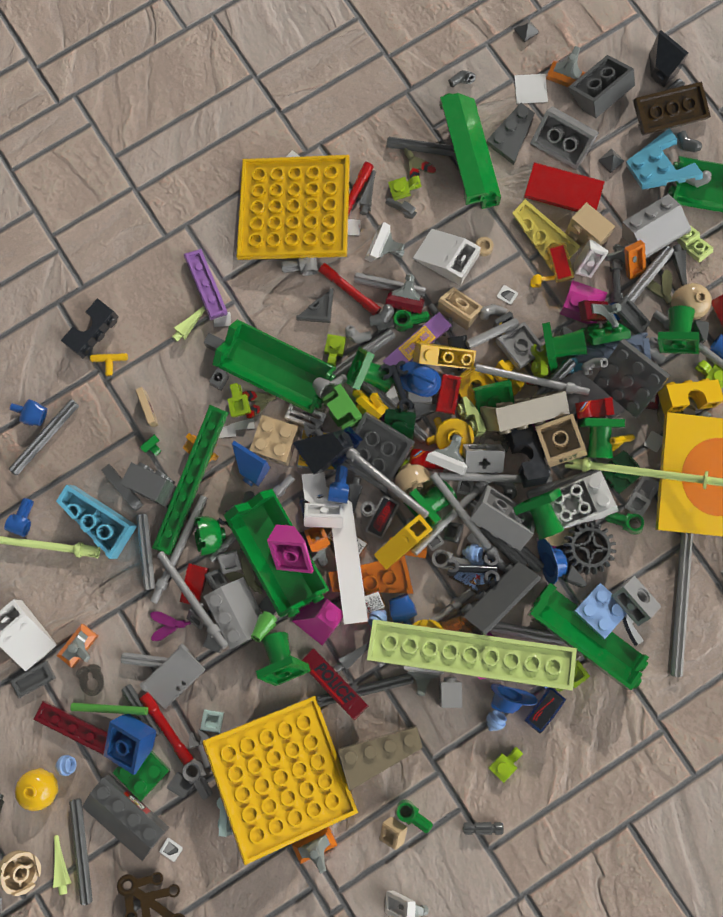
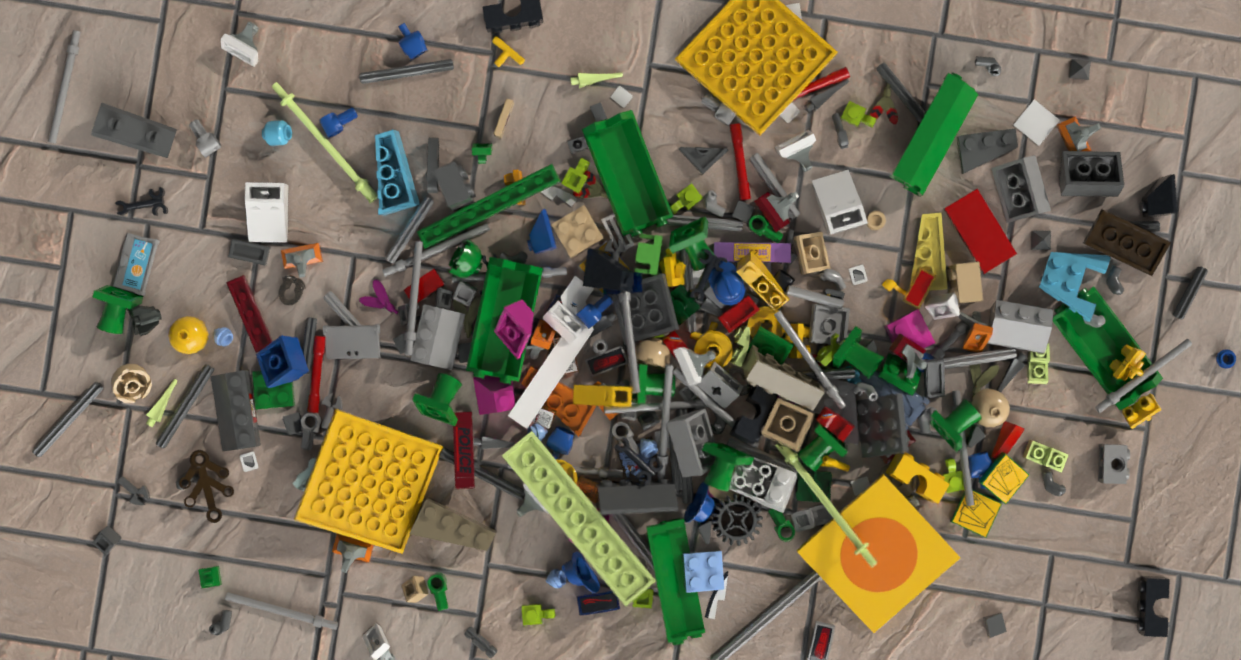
camera: 40 degrees right, 10 degrees up
(118, 709) = (287, 324): bright green bar -> none
(205, 284) = (633, 57): medium lavender tile -> none
(212, 721) = (353, 398): light aqua tile -> none
(263, 626) = (450, 364): bright green cone -> none
(324, 387) = (649, 226): light grey bar -> none
(384, 317) = (744, 210): dark grey arm -> none
(450, 693) = (540, 531): light grey brick -> none
(636, 601) = (734, 586): light grey brick -> none

